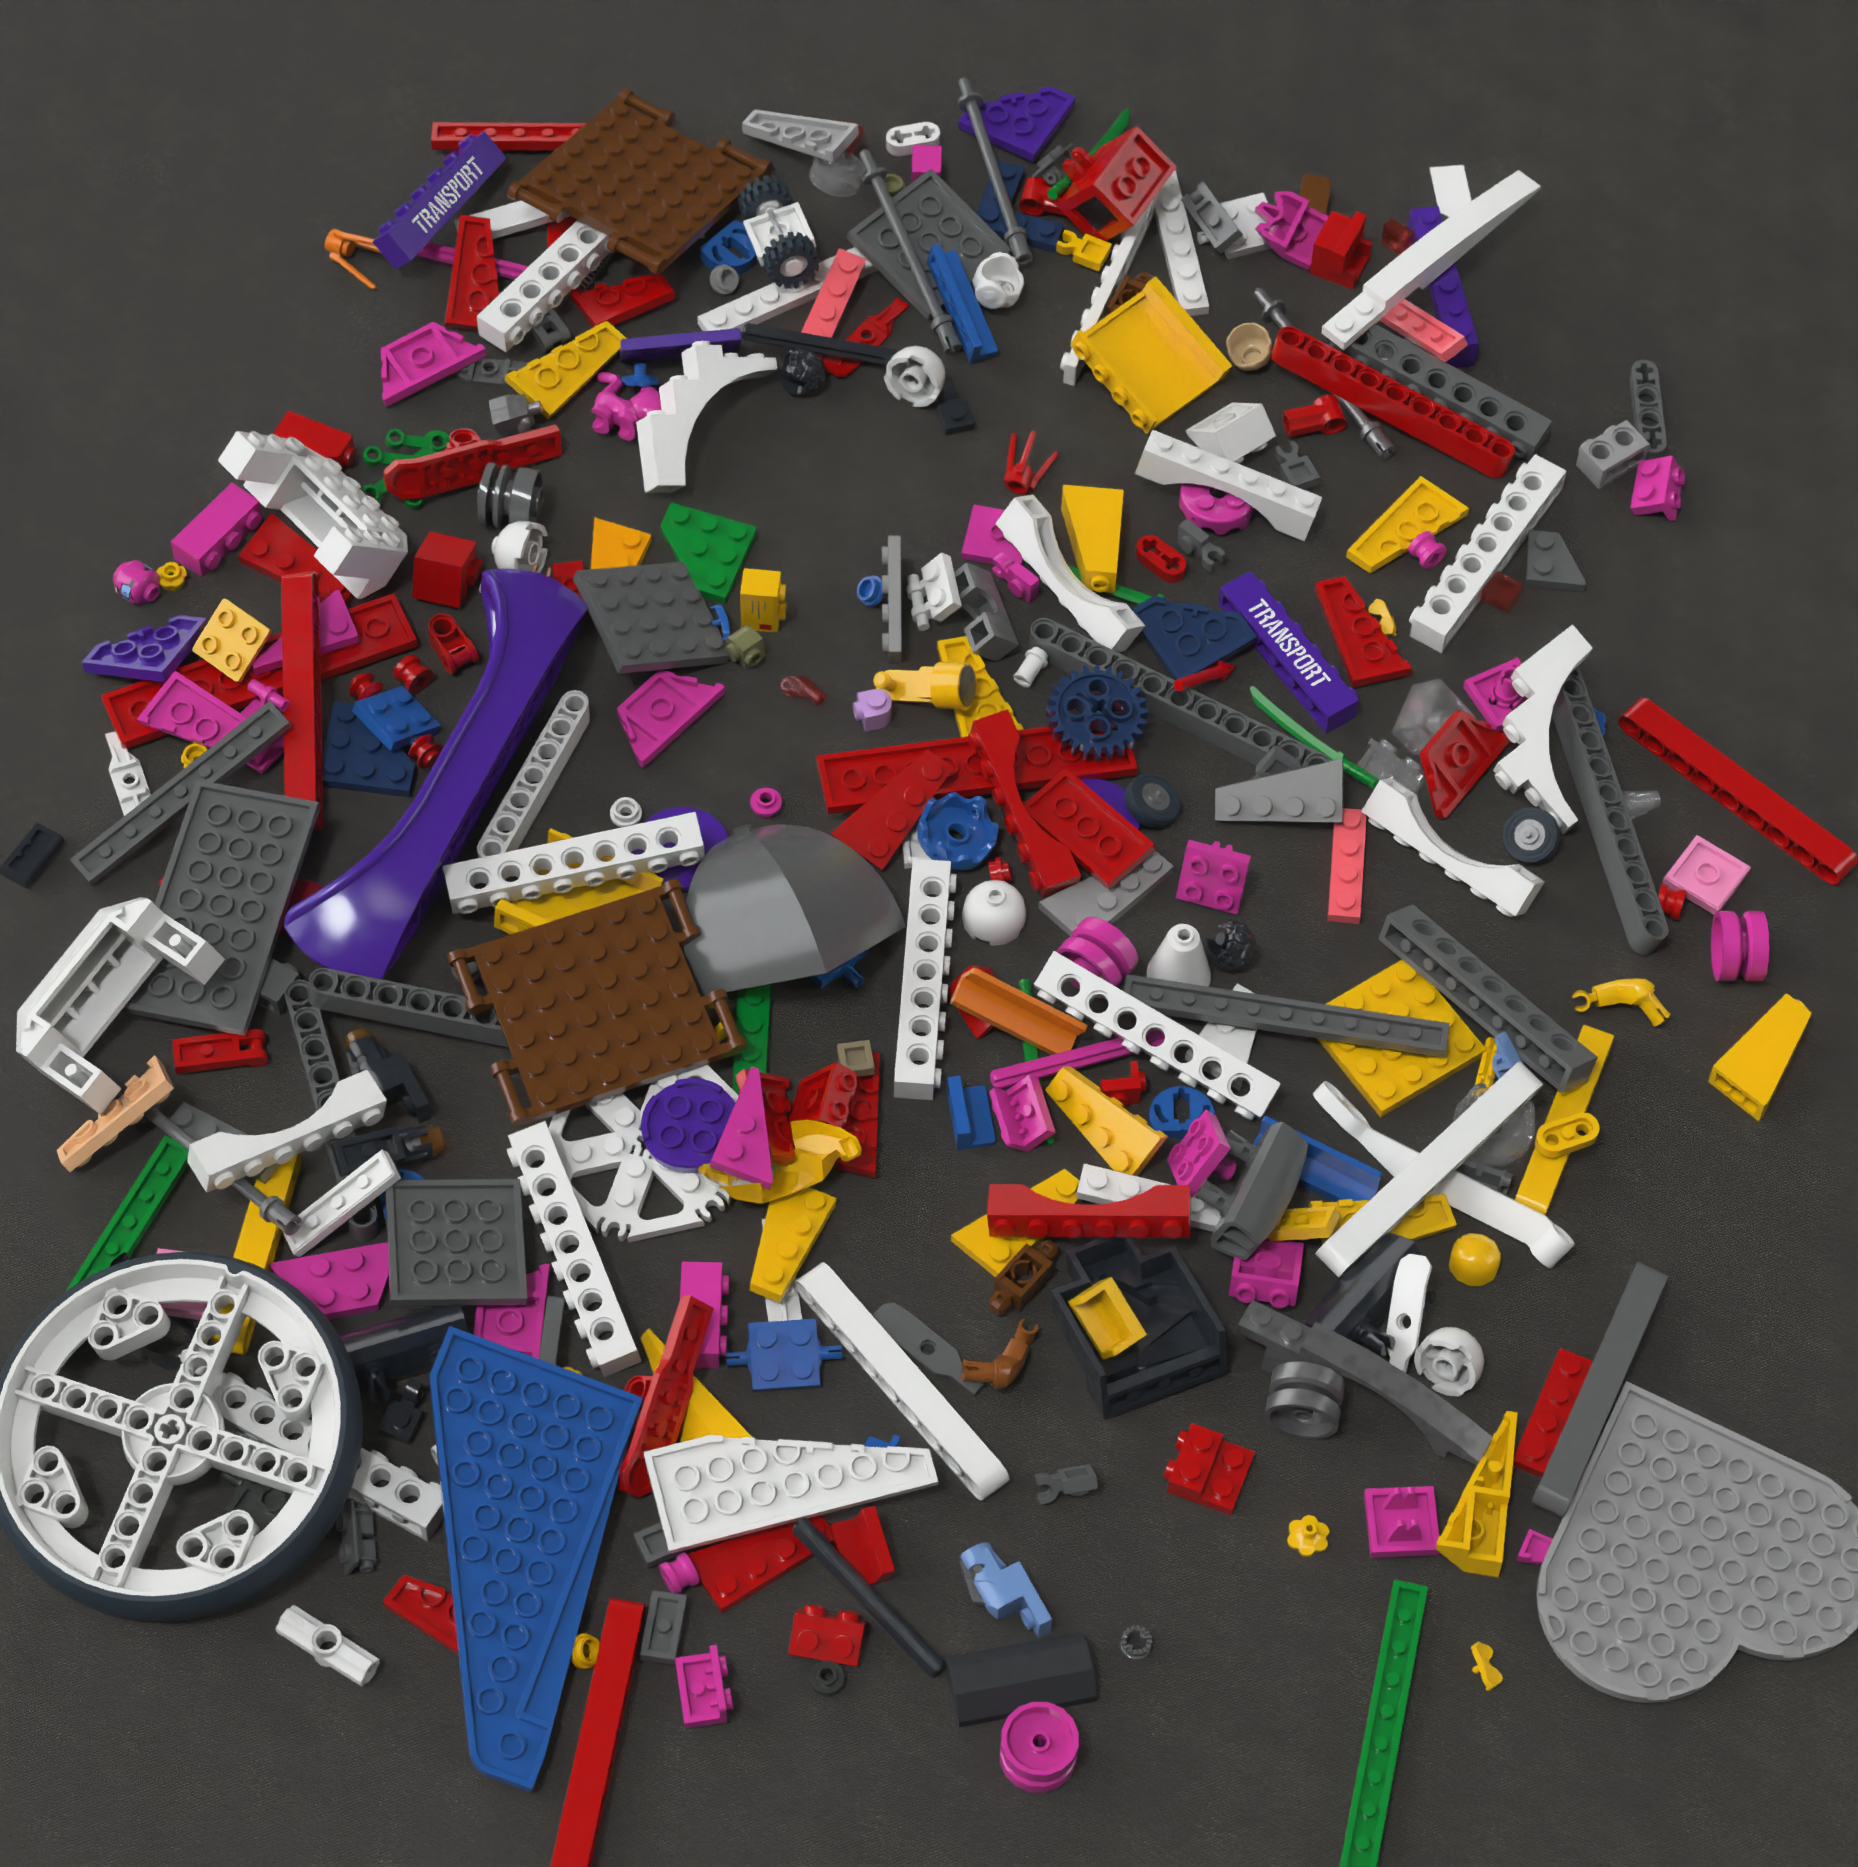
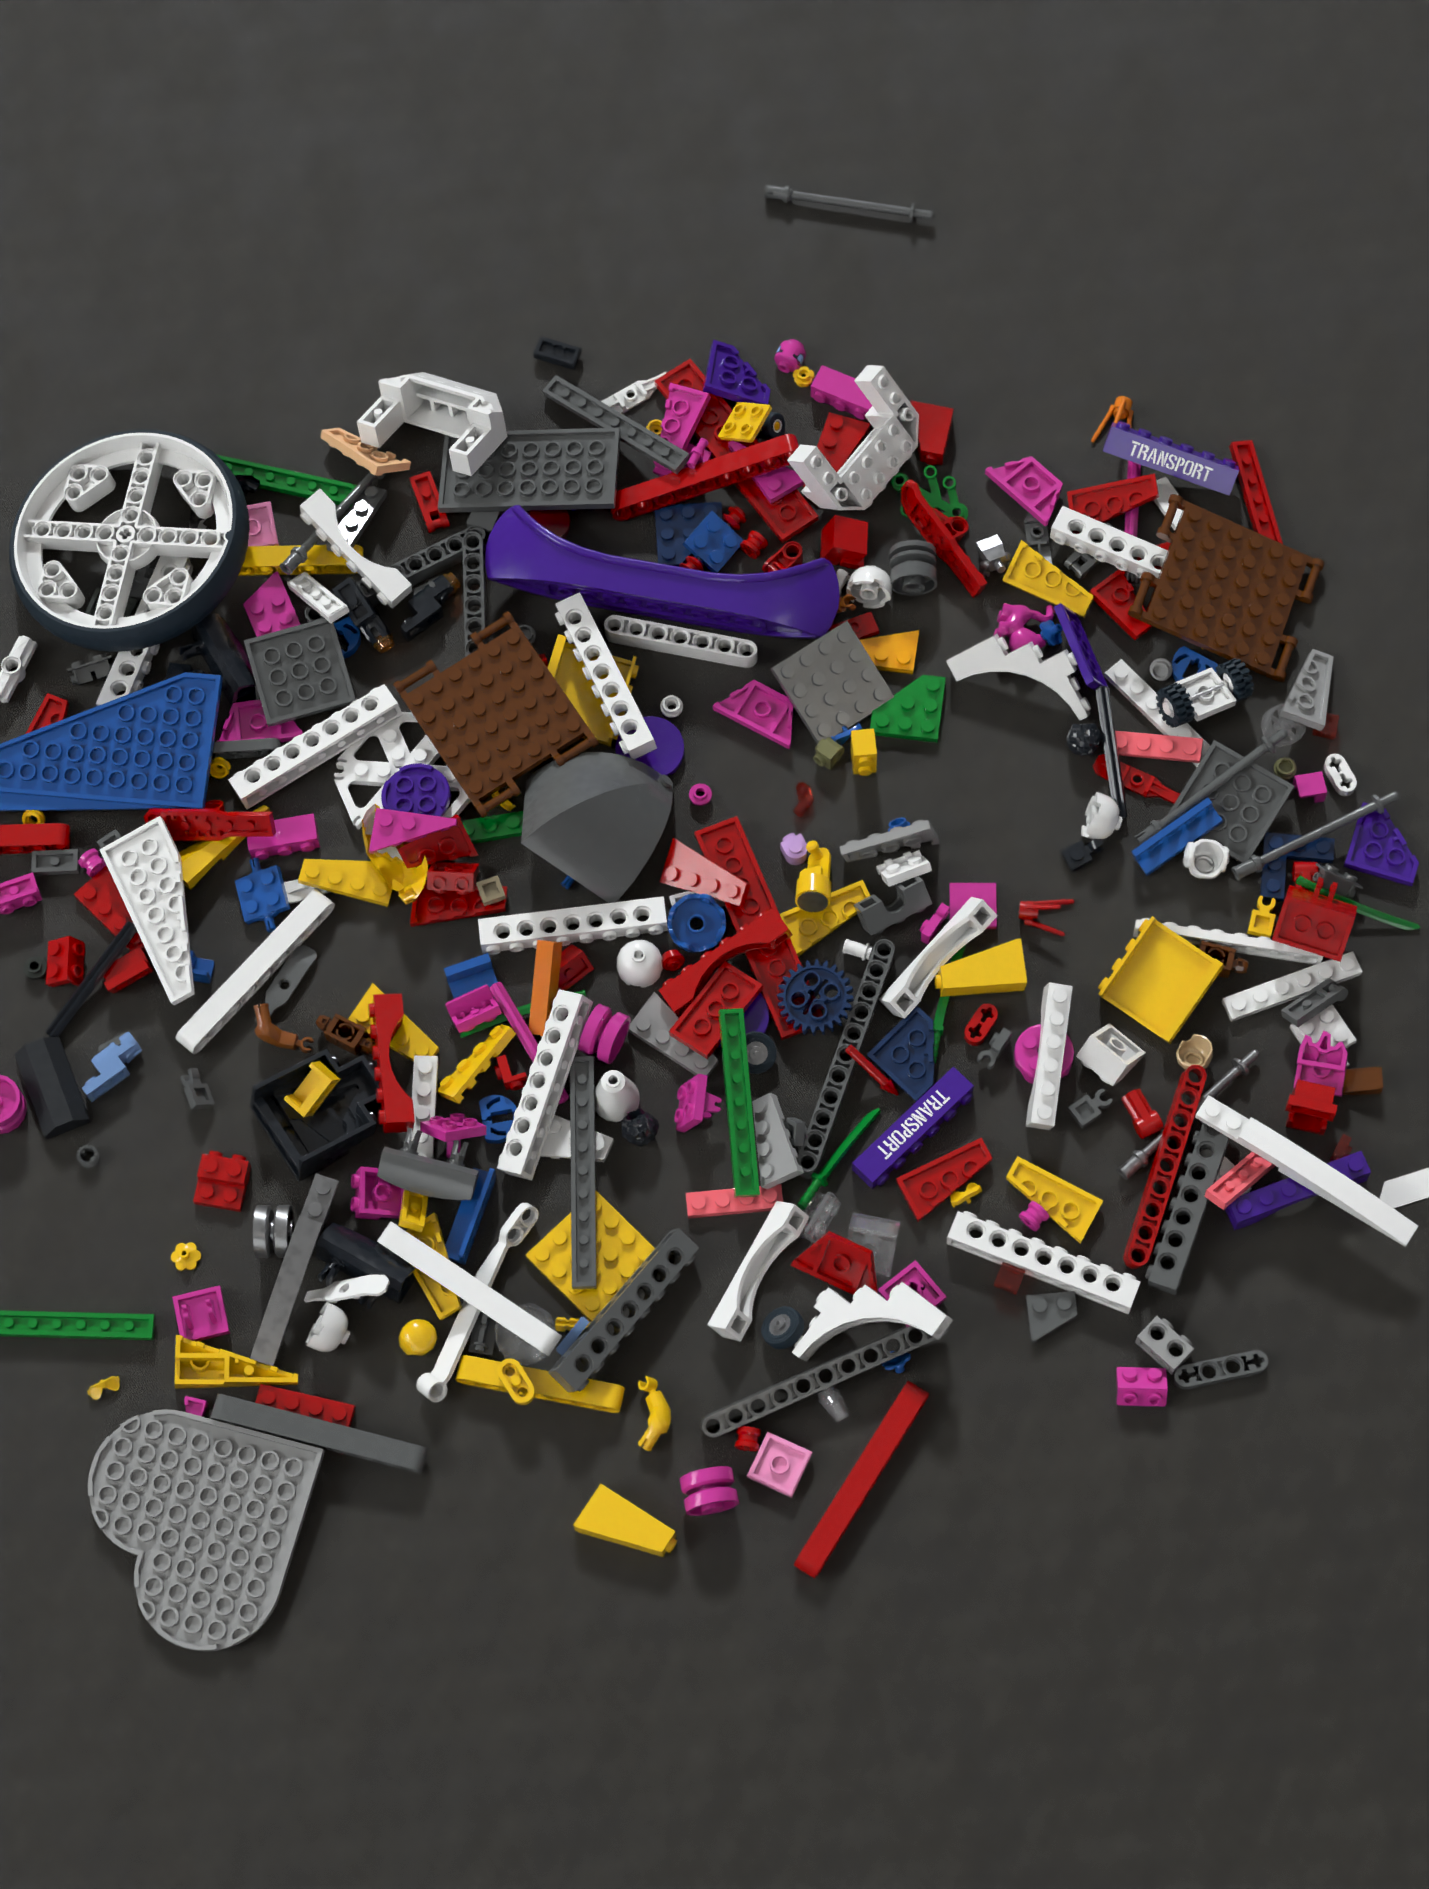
camera: 85 degrees right, 10 degrees up
(1227, 819) = (739, 1103): none -> green plate

